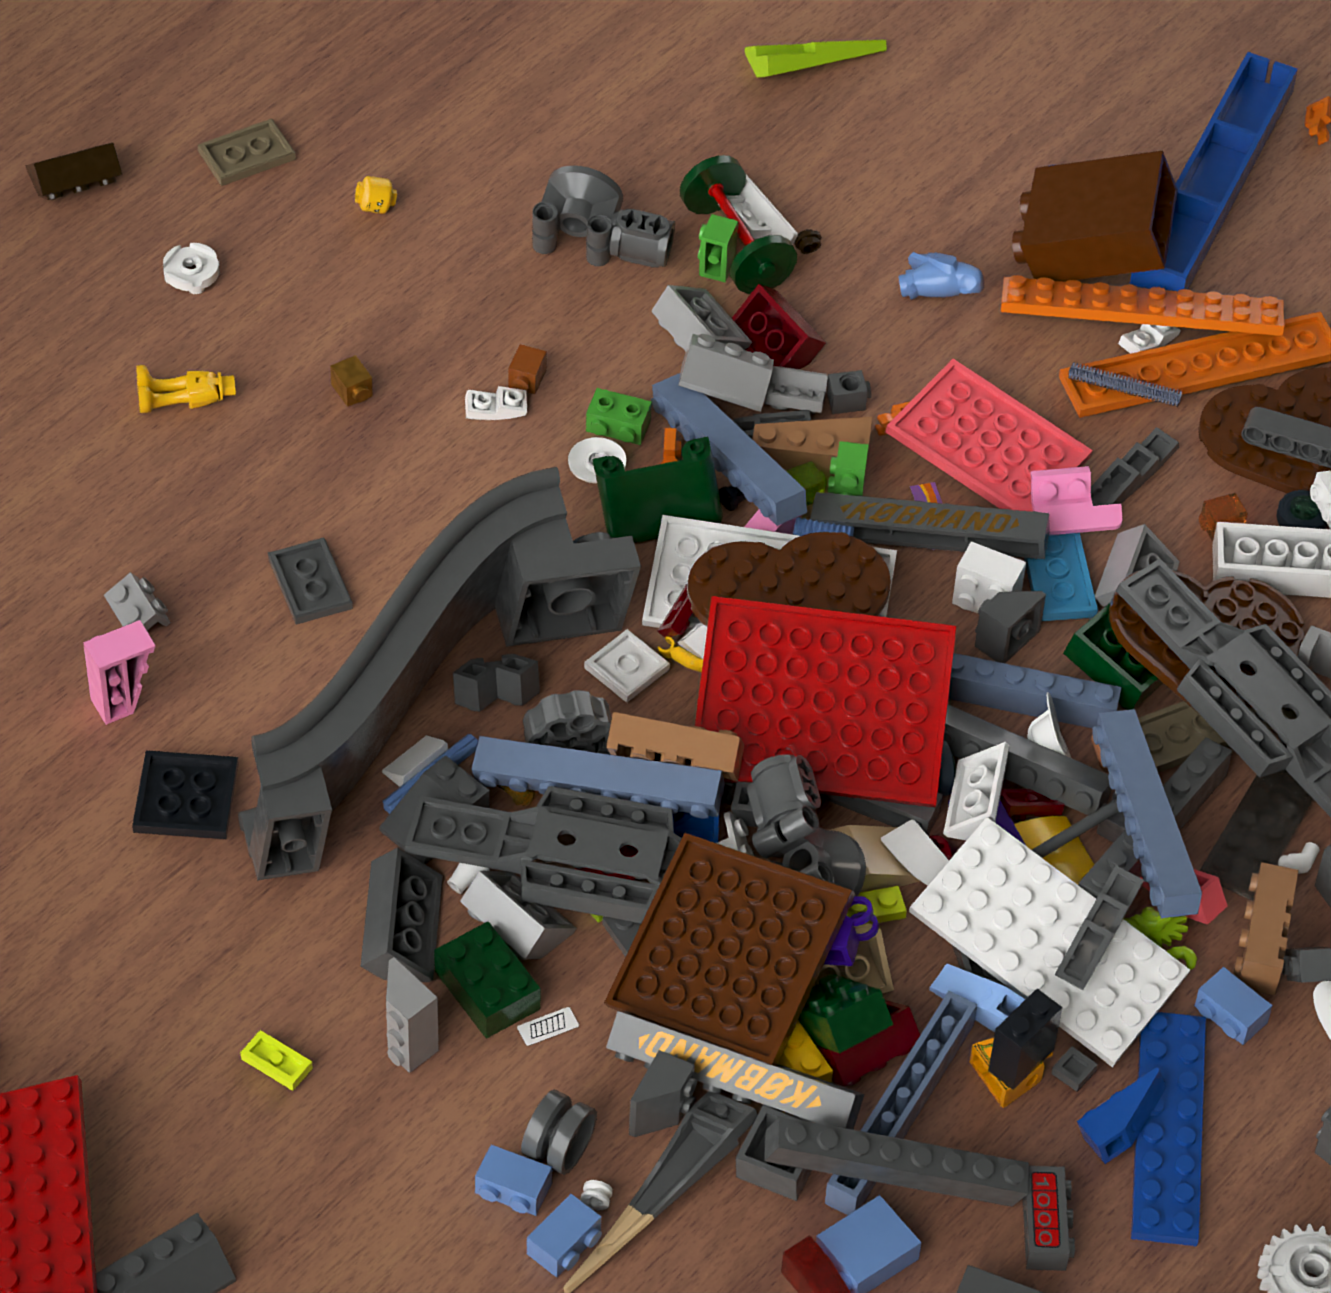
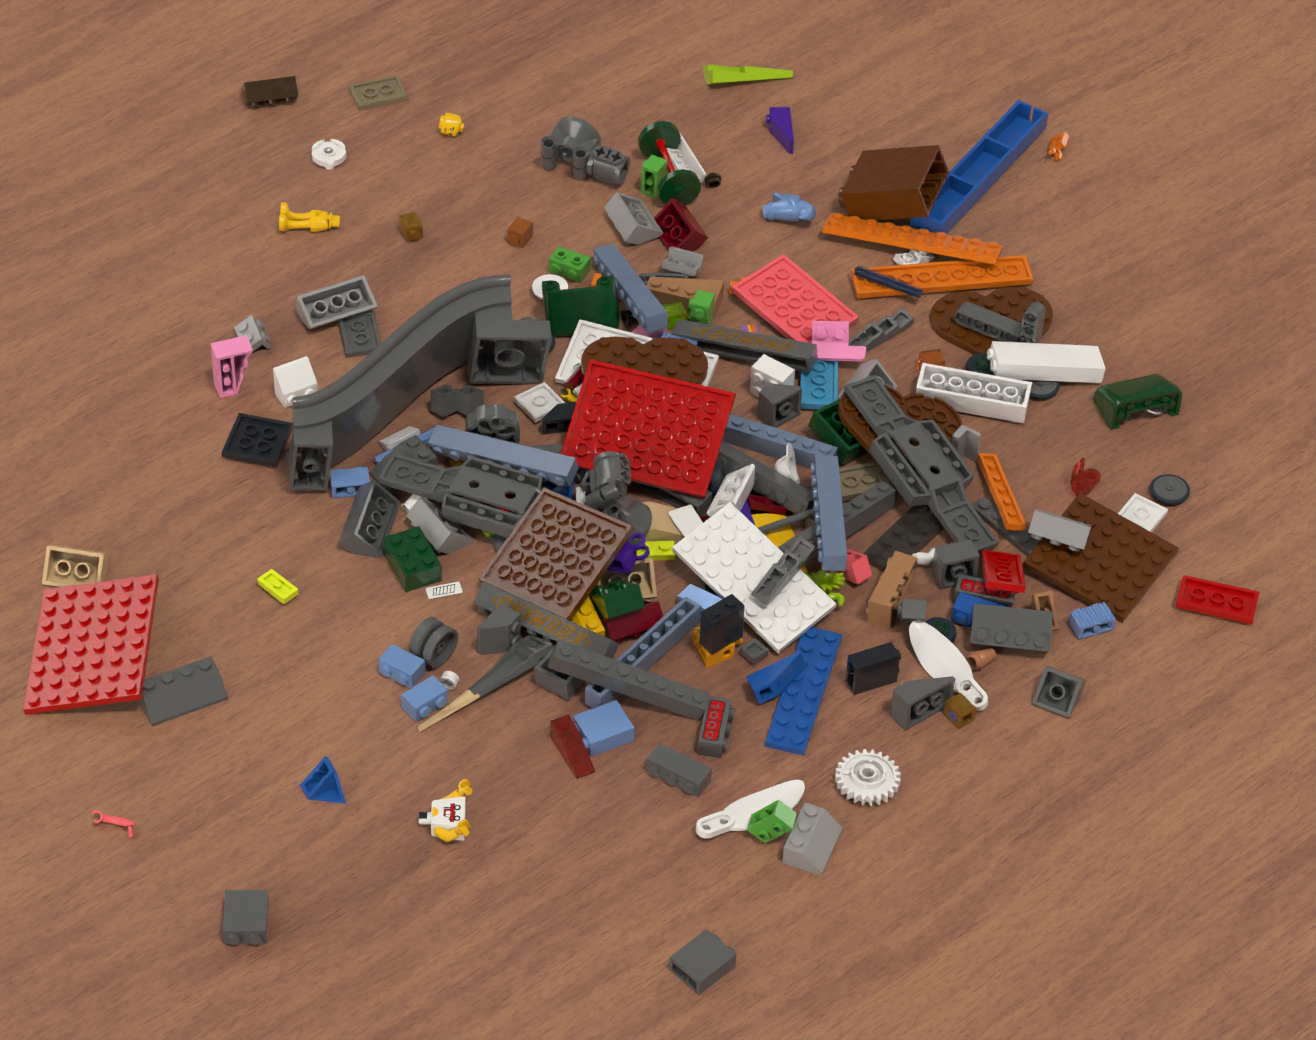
camera: 10 degrees right, 5 degrees down
(227, 685) = (294, 380): none -> white slope
(262, 533) = (335, 302): none -> light grey slope
(352, 851) = (347, 481): none -> medium blue brick
(410, 1018) = (358, 570): light grey slope -> none
(504, 404) = (500, 251): white slope -> none
(670, 691) = (558, 418): none -> black slope
(675, 744) = (551, 439): medium nougat wedge -> none
(726, 371) = (640, 245): light grey slope -> none
(847, 392) = (715, 267): dark grey brick -> none
(892, 138) = (781, 126): none -> dark purple slope
(1233, 1006) = (860, 629): medium blue brick -> none
(1274, 1076) = (872, 668): none -> black brick

